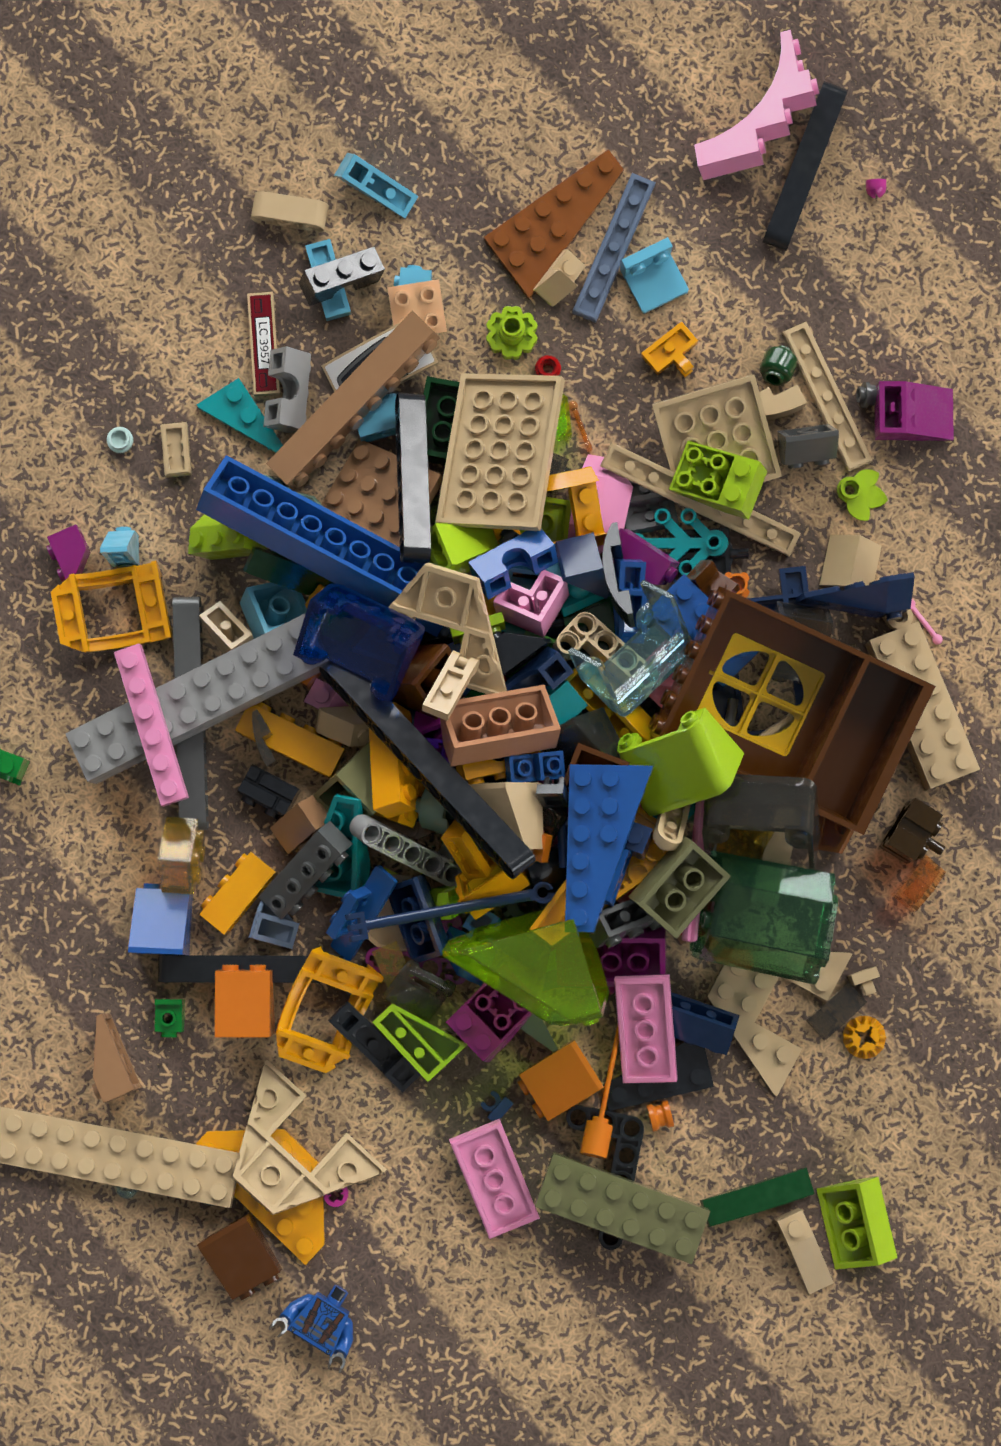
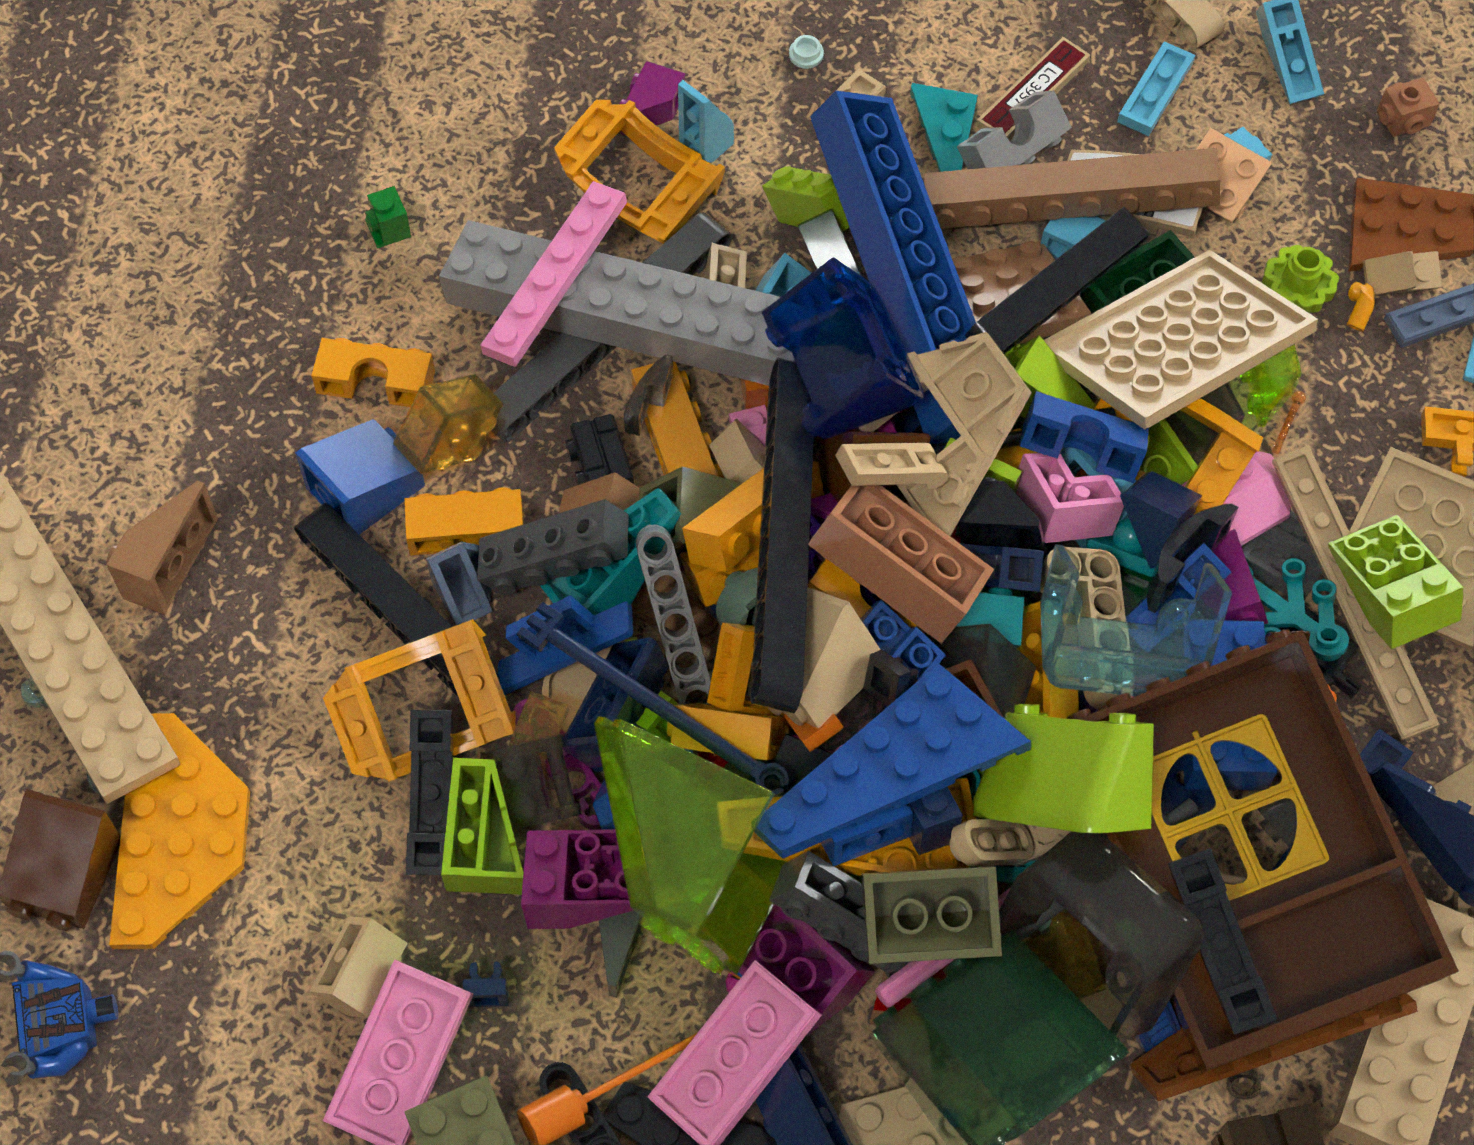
camera: 45 degrees right, 20 degrees down
(82, 870) = (345, 363): none -> light orange arch
(177, 1009) = (269, 581): green brick -> none
(244, 1002) = (349, 612): orange slope -> none
(272, 1173) = (183, 814): tan wing -> none
(326, 279) = (1155, 71): arch -> none
(337, 1202) = (212, 899): dark pink bush -> none
(434, 1158) = (357, 966): none -> tan brick
(471, 166) = (1407, 107): none -> nougat brick
(548, 360) = (1315, 349): red plate -> none
(558, 318) = (1364, 305): none -> light orange arm
(559, 1081) = (583, 1022): orange slope -> none
(825, 776) = (1223, 947): none -> black slope

